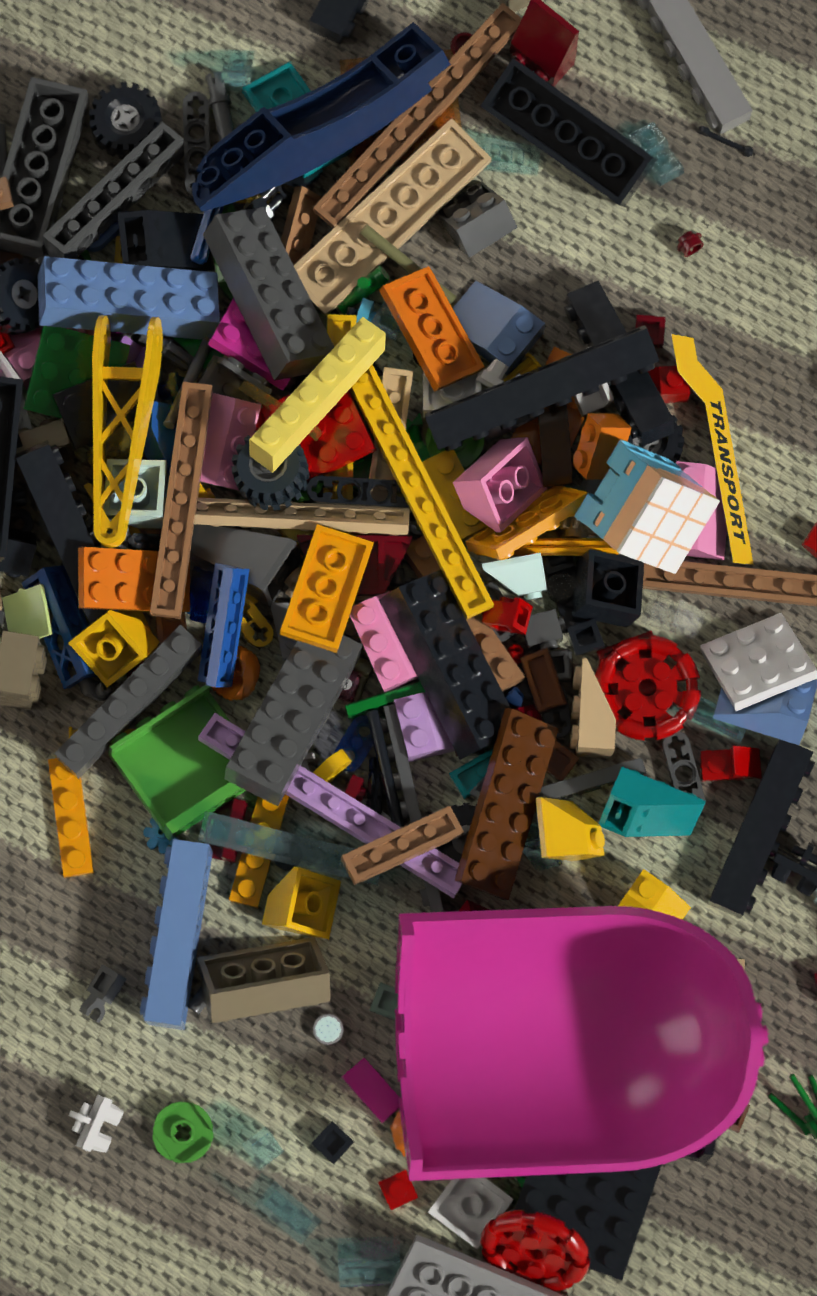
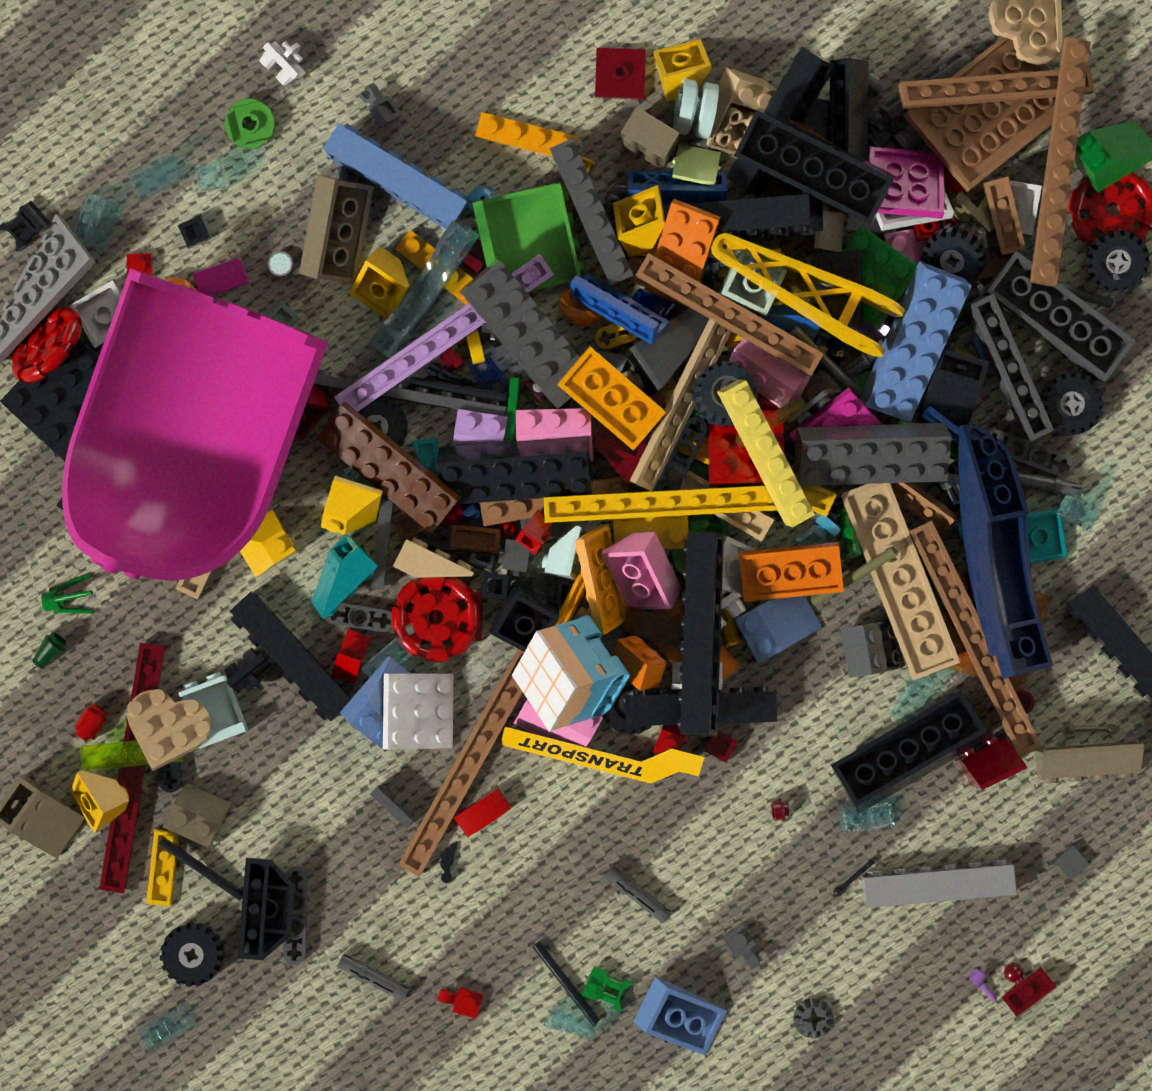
camera: 110 degrees right, 10 degrees up
(402, 845) = (387, 372): medium nougat plate -> none

